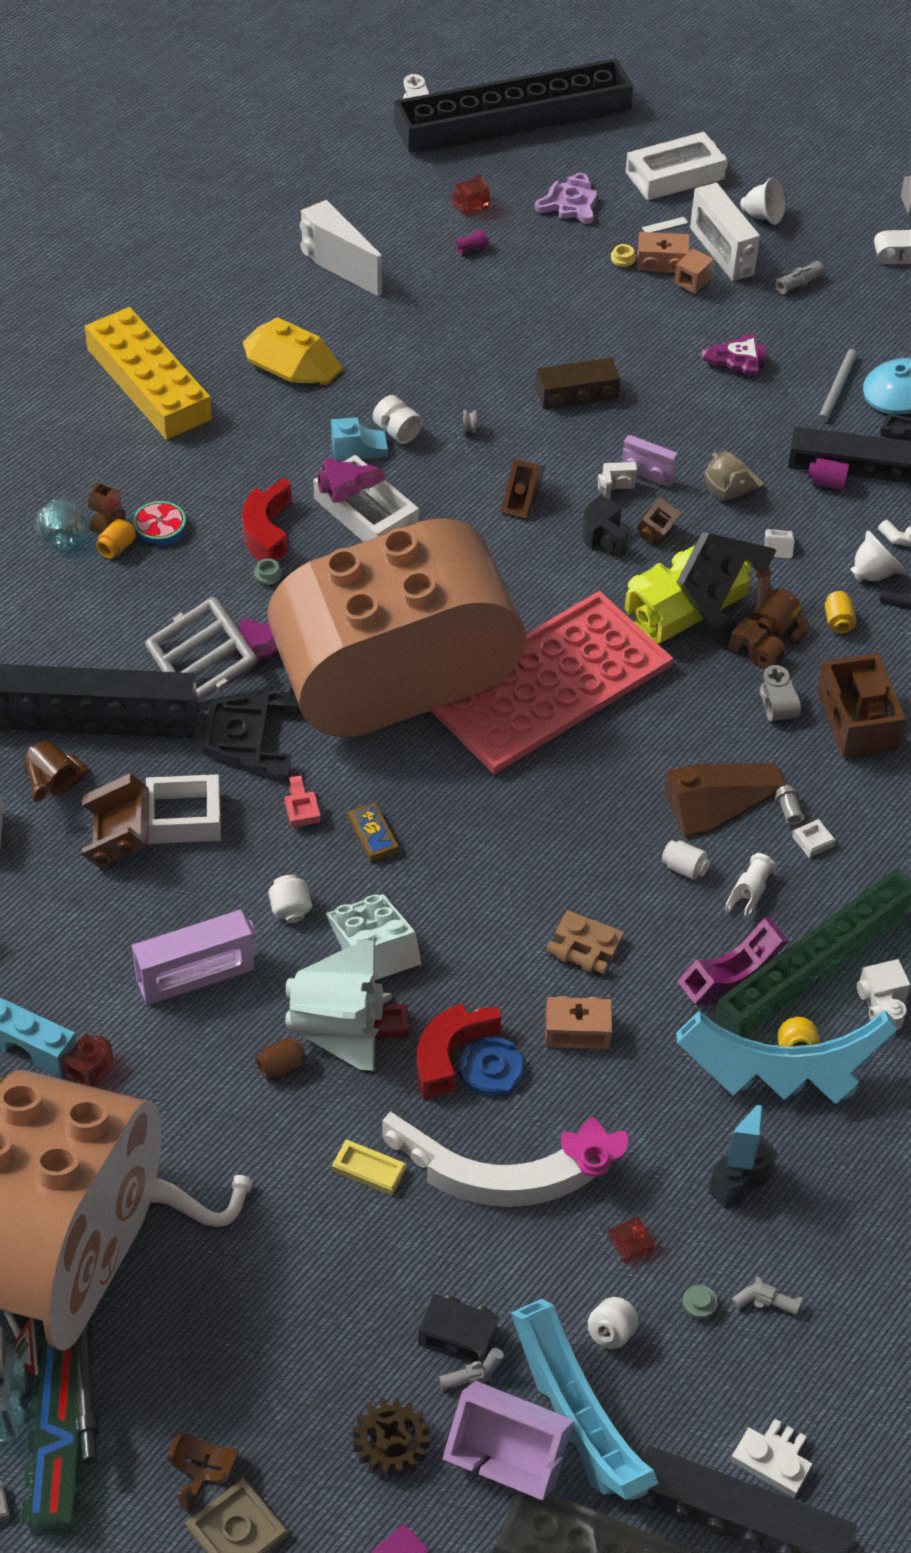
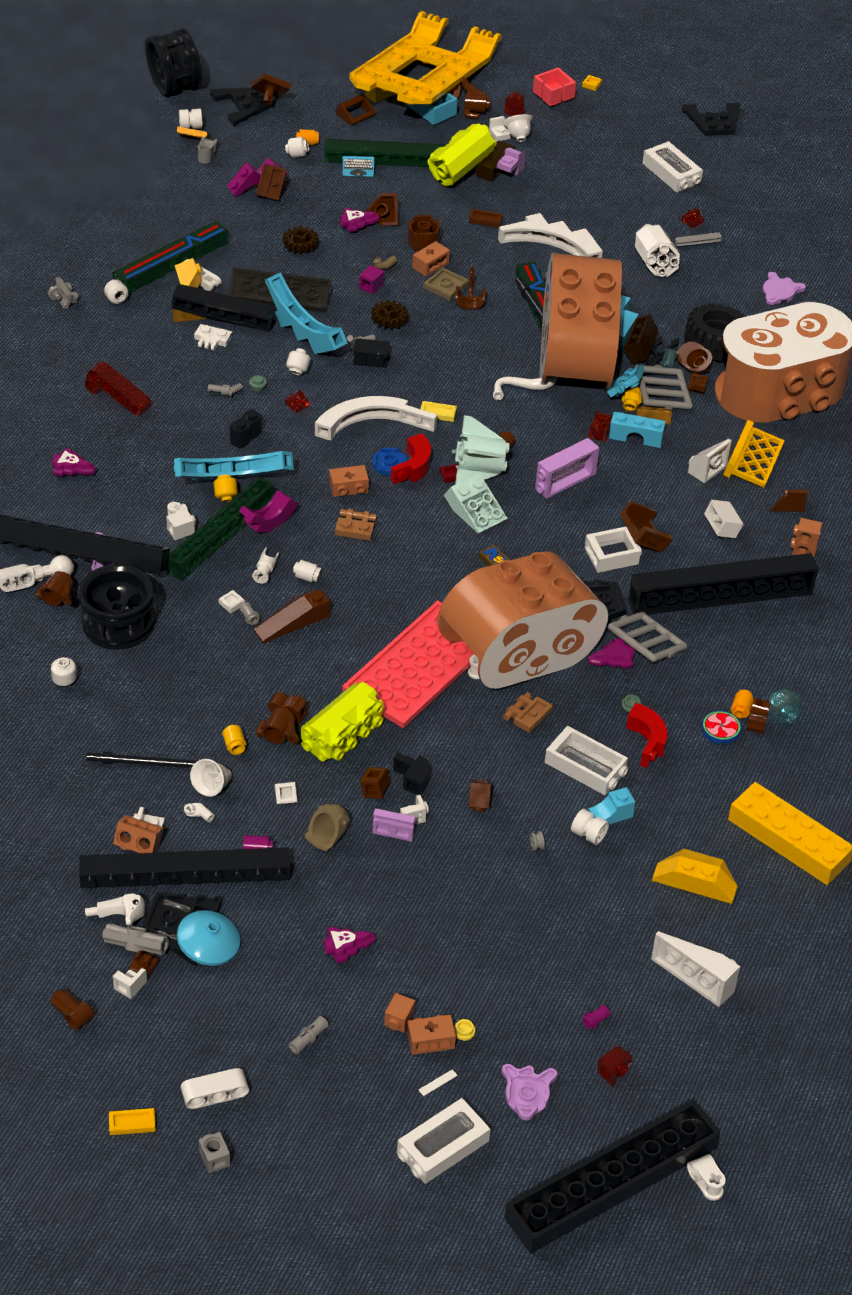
camera: 165 degrees right, 5 degrees down
(52, 770) = (699, 550): reddish brown piece -> none
(290, 898) = (529, 513): white head -> none
(346, 479) = (603, 750): magenta rock -> none
(517, 1435) = (335, 308): lavender piece -> none
(577, 383) = (466, 888): dark brown brick -> none
(594, 1144) = (324, 414): dark pink plate -> none
(711, 574) = (319, 706): black wing -> none
(724, 231) = (382, 1051): white piece -> none
(746, 1140) = (247, 404): medium azure slope -> none
(765, 202) = (353, 1104): white hat -> none
(779, 695) = (267, 676): light grey piece -> none
(837, 386) = (260, 937): light grey bar -> none
(857, 703) = (210, 666): reddish brown piece -> none

